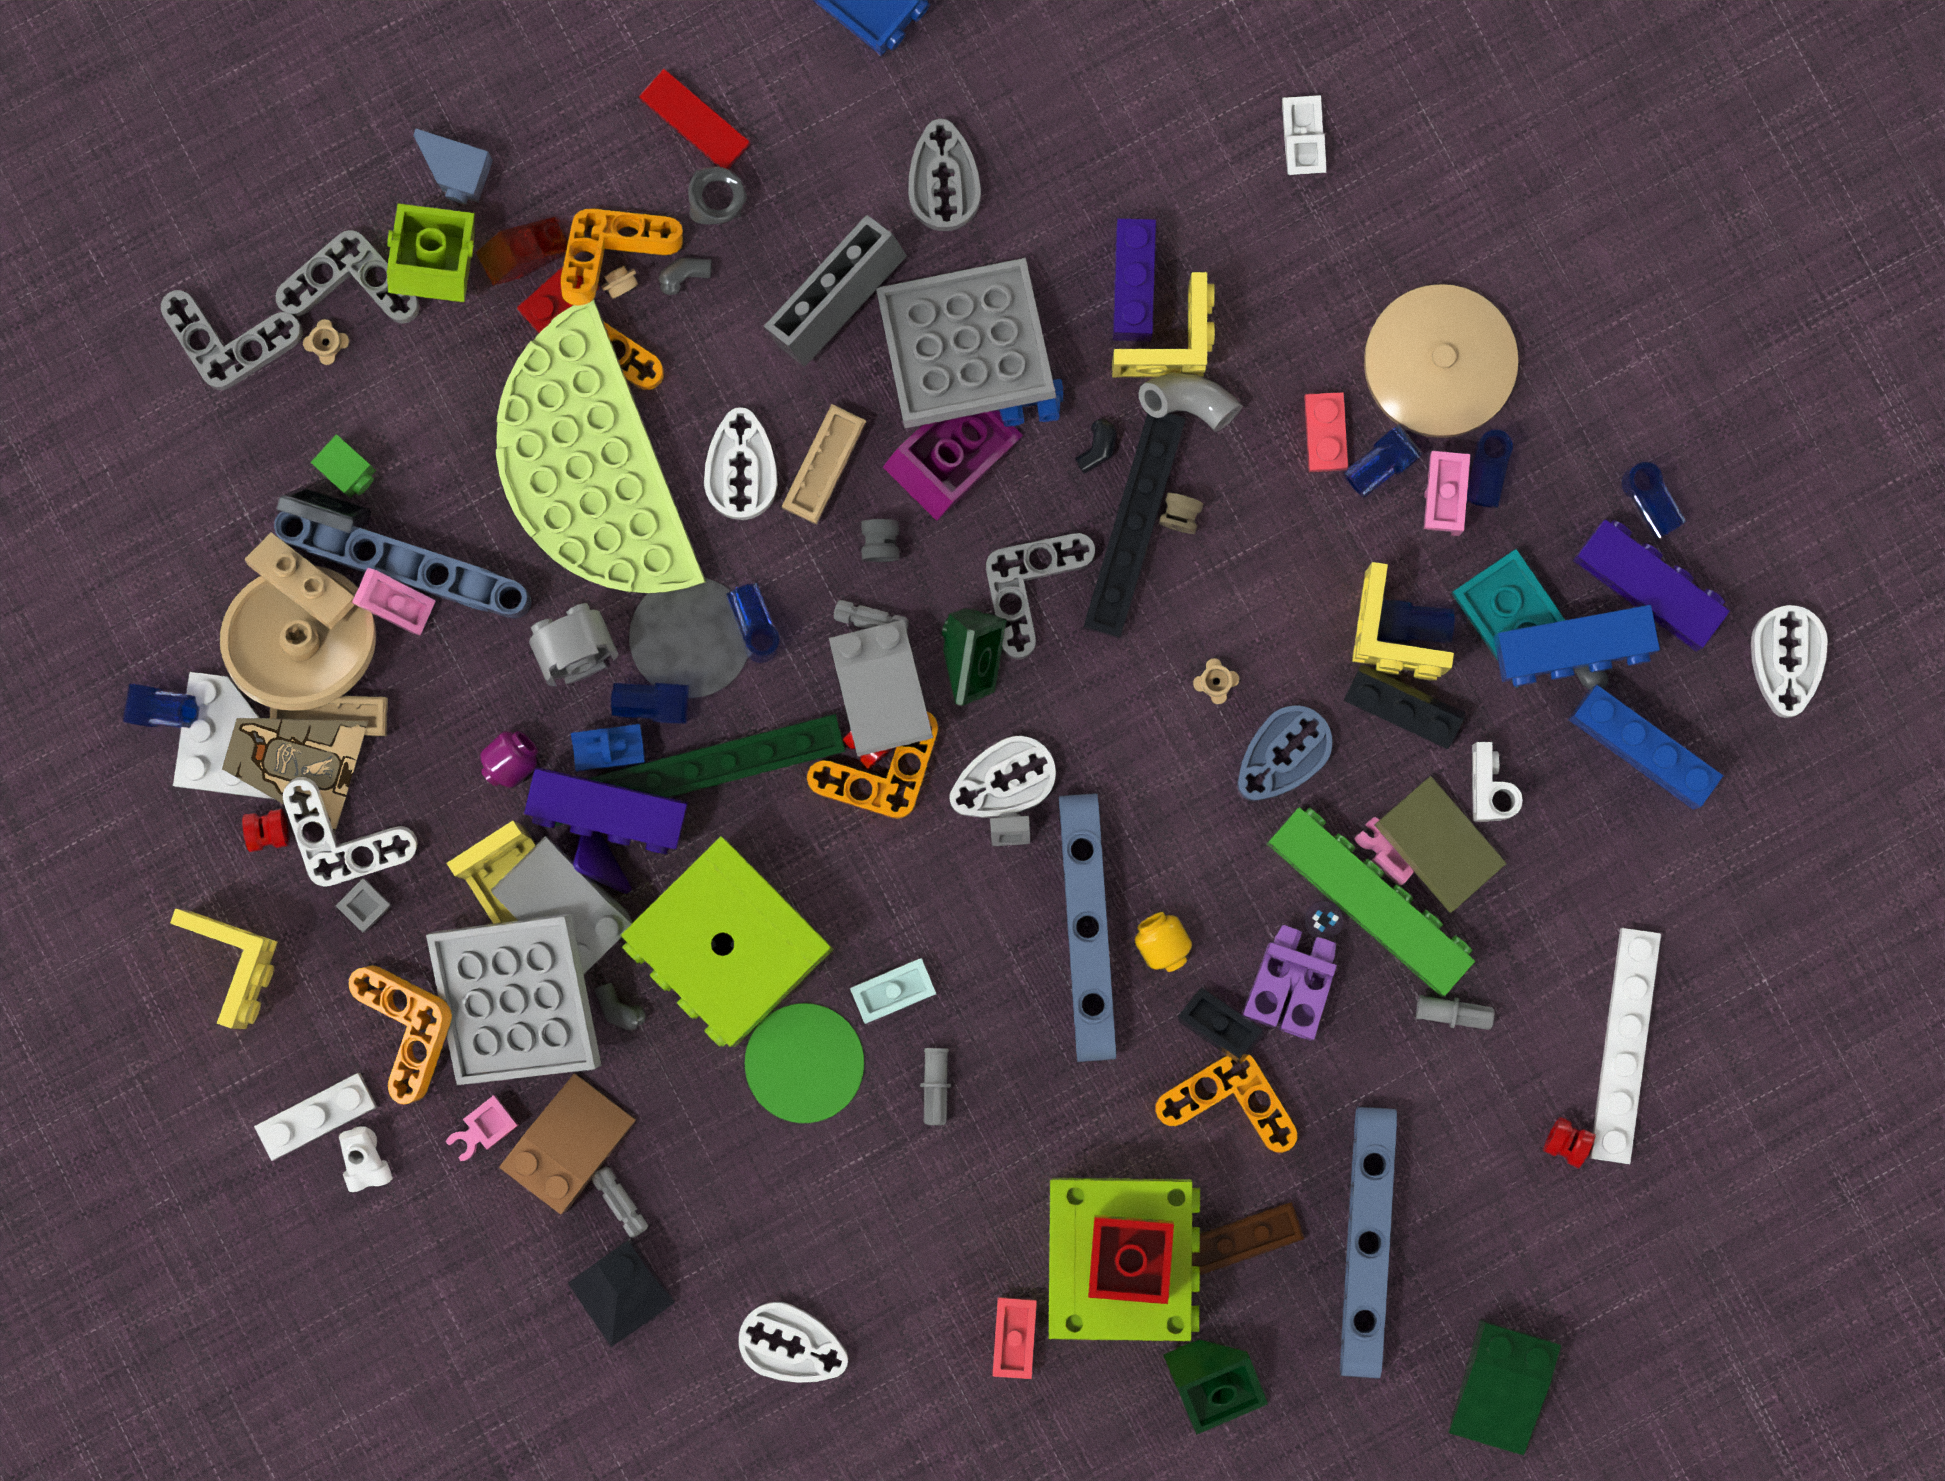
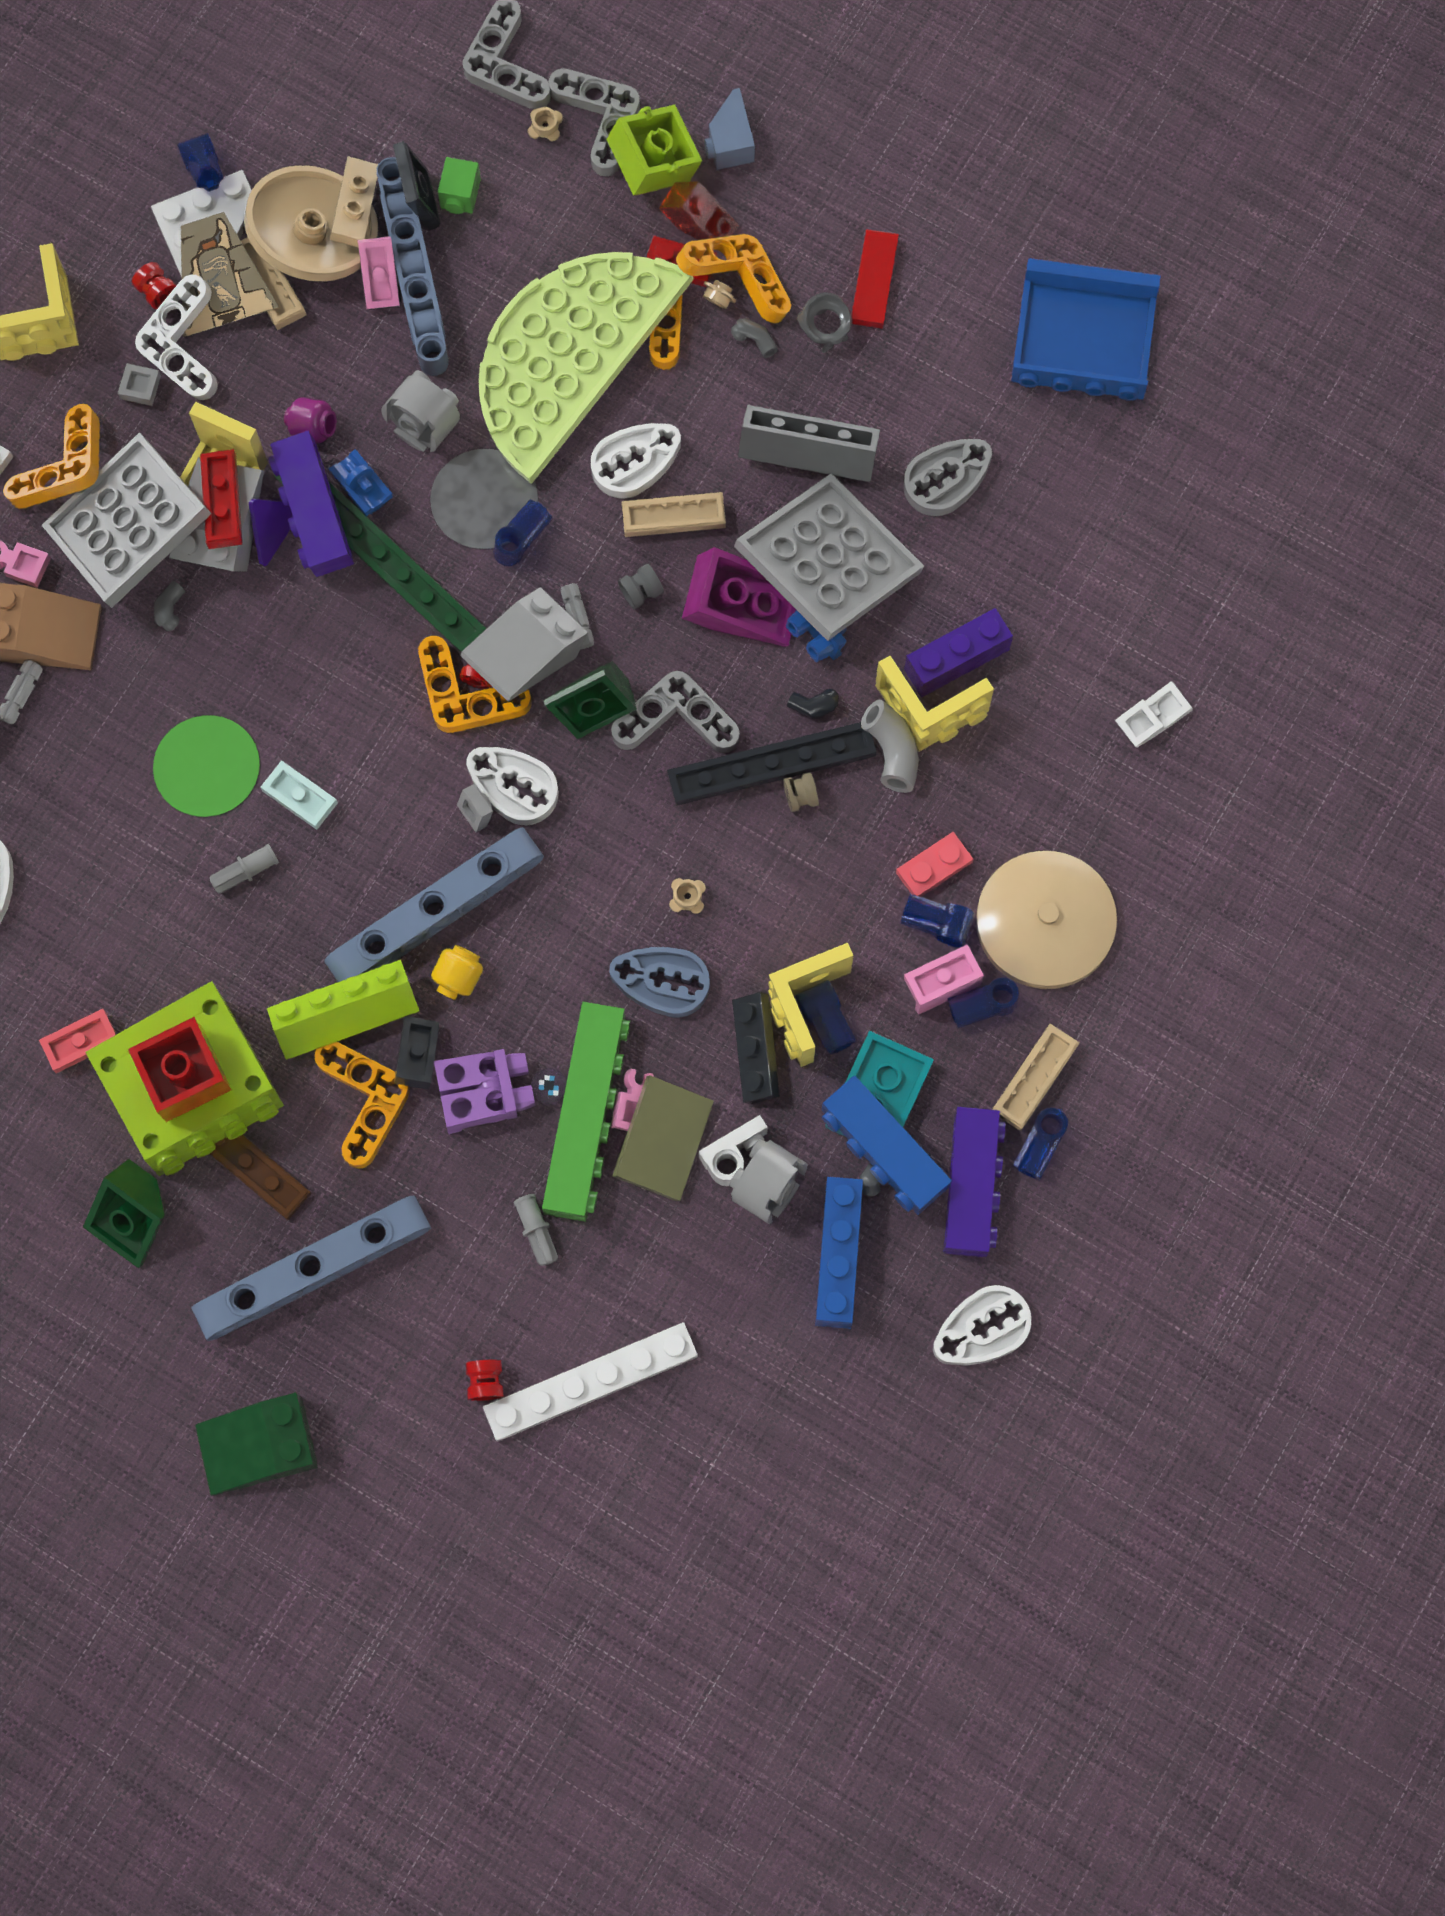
camera: 55 degrees right, 10 degrees down
(555, 894) = (221, 499): none -> red tile
(660, 702) = (417, 499): clear blue piece -> none
(681, 935) = (260, 648): lime gear -> none
(1138, 1070) = (342, 1009): none -> lime brick
(1543, 772) = (767, 1181): none -> light grey brick
(1586, 465) = (1035, 1076): none -> tan plate

